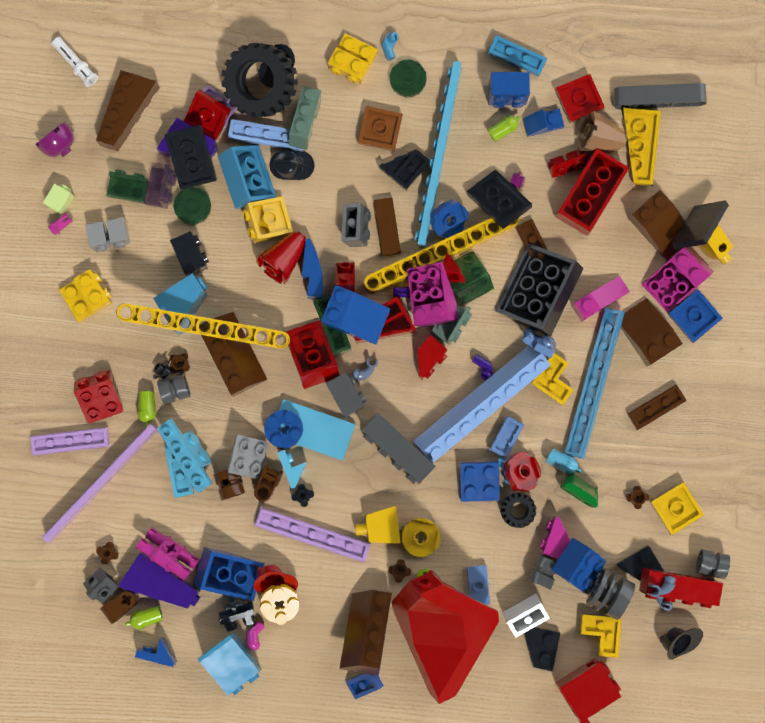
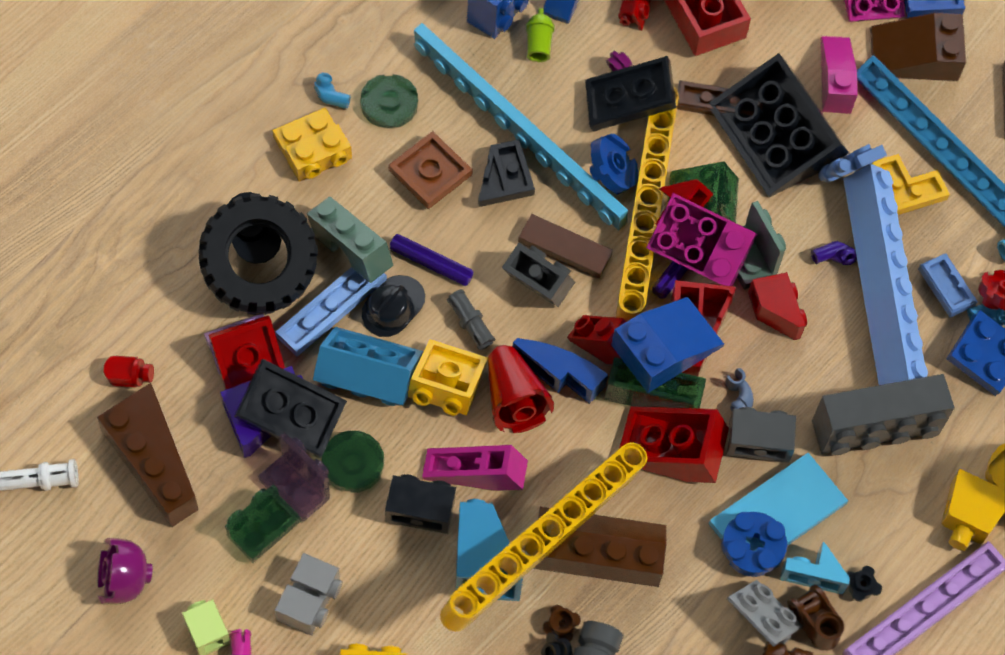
camera: 60 degrees left, 20 degrees down
(160, 65) = (128, 371): none -> red arm
(229, 267) = (477, 467): none -> dark pink slope
(309, 208) = (471, 319): none -> dark grey pin
(329, 165) = (431, 259): none -> dark purple axle

